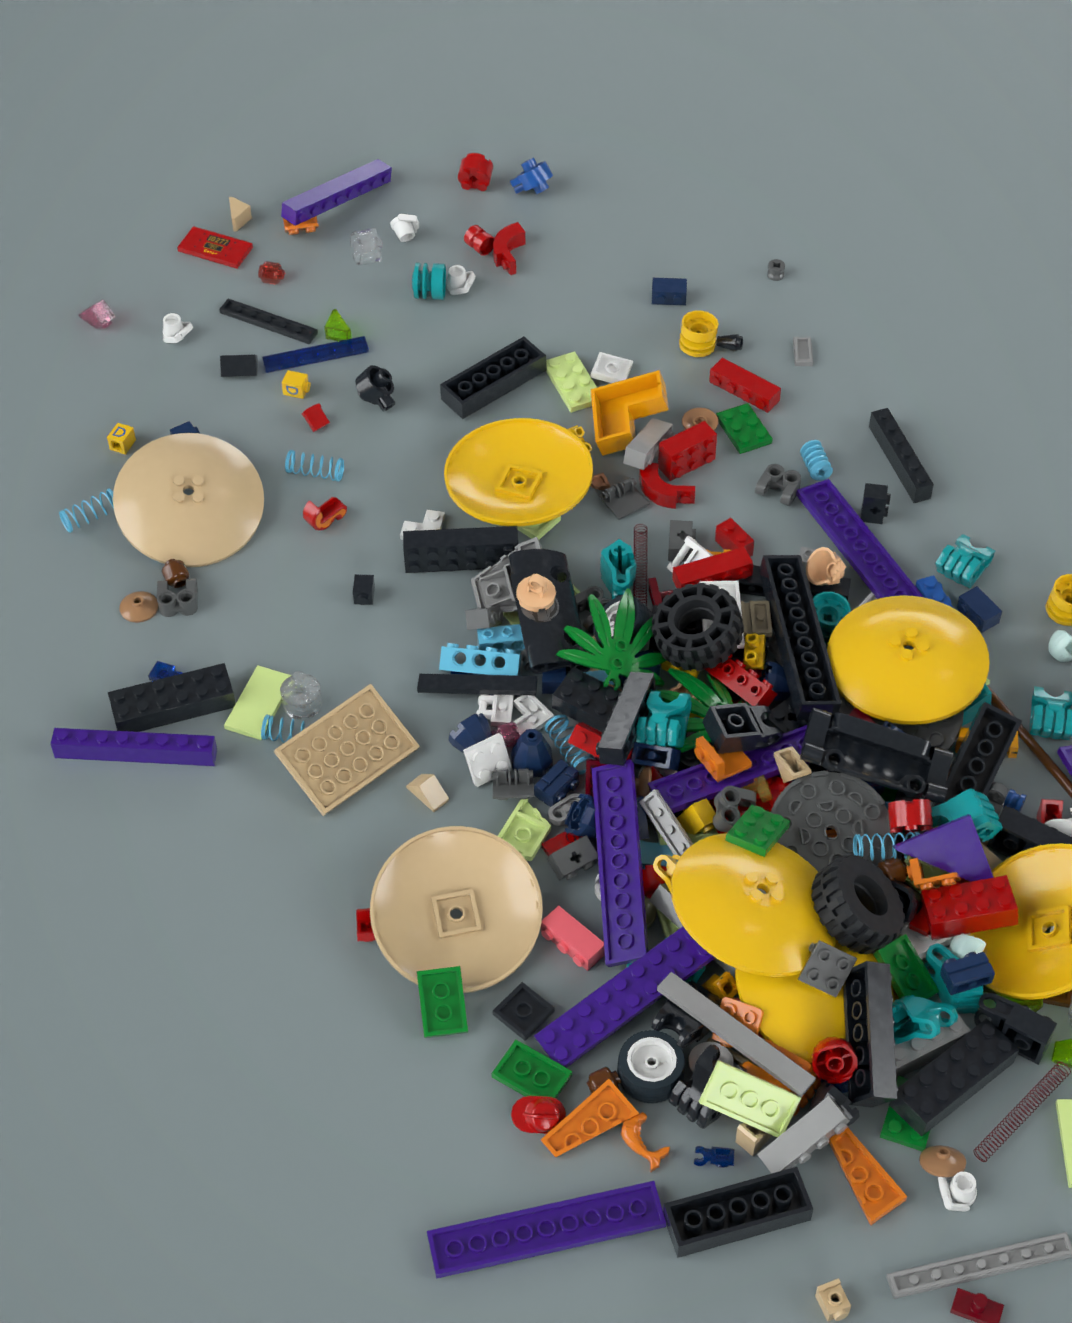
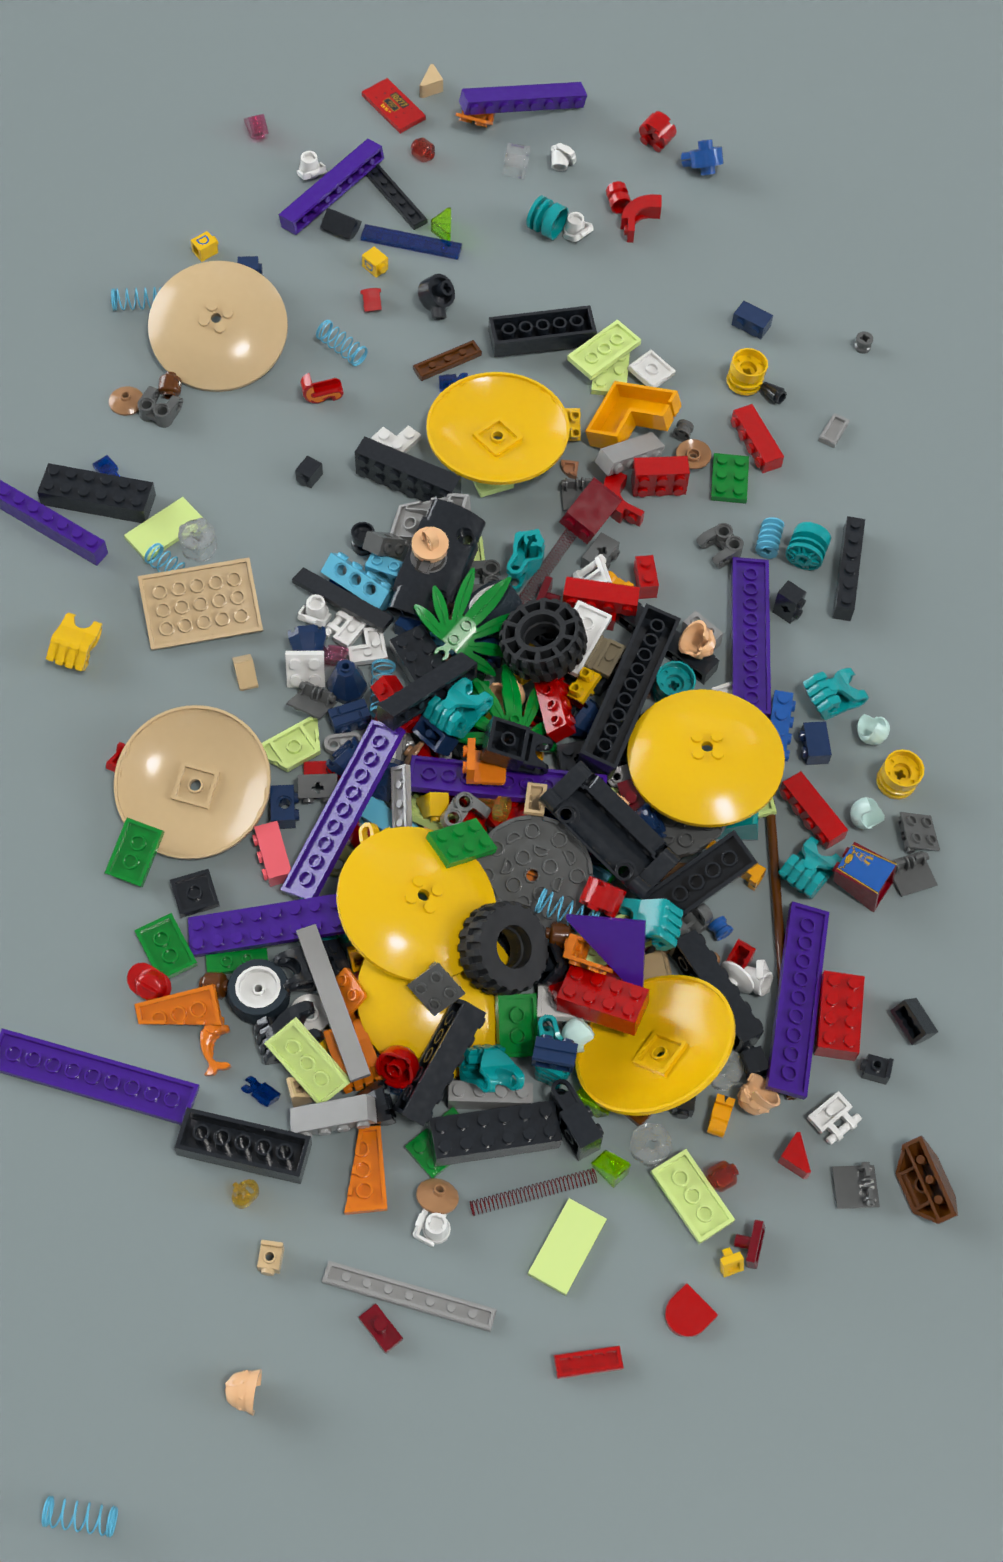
camera: 25 degrees right, 10 degrees up
(208, 338) = (331, 186): none -> dark purple brick
(247, 844) = (73, 644): none -> yellow piece
(421, 440) = (447, 360): none -> reddish brown tile
(438, 456) = (448, 379): none -> clear blue plate
(456, 623) = (358, 536): none -> black wheel
(457, 706) = (315, 611): none -> white piece
(553, 881) = (280, 796): none -> dark blue brick
(561, 368) = (604, 349): none -> yellowish green plate
(603, 1054) = (230, 961): none -> green plate
(650, 505) = (590, 510): none -> dark red slope
(676, 406) = (683, 430): none -> dark grey wheel
(767, 1257) = (241, 1196): none -> clear yellow piece
(855, 451) = (808, 546): none -> teal wheel
(1019, 575) = (873, 730): none -> light aqua hair
(1022, 664) = (813, 810): none -> red brick

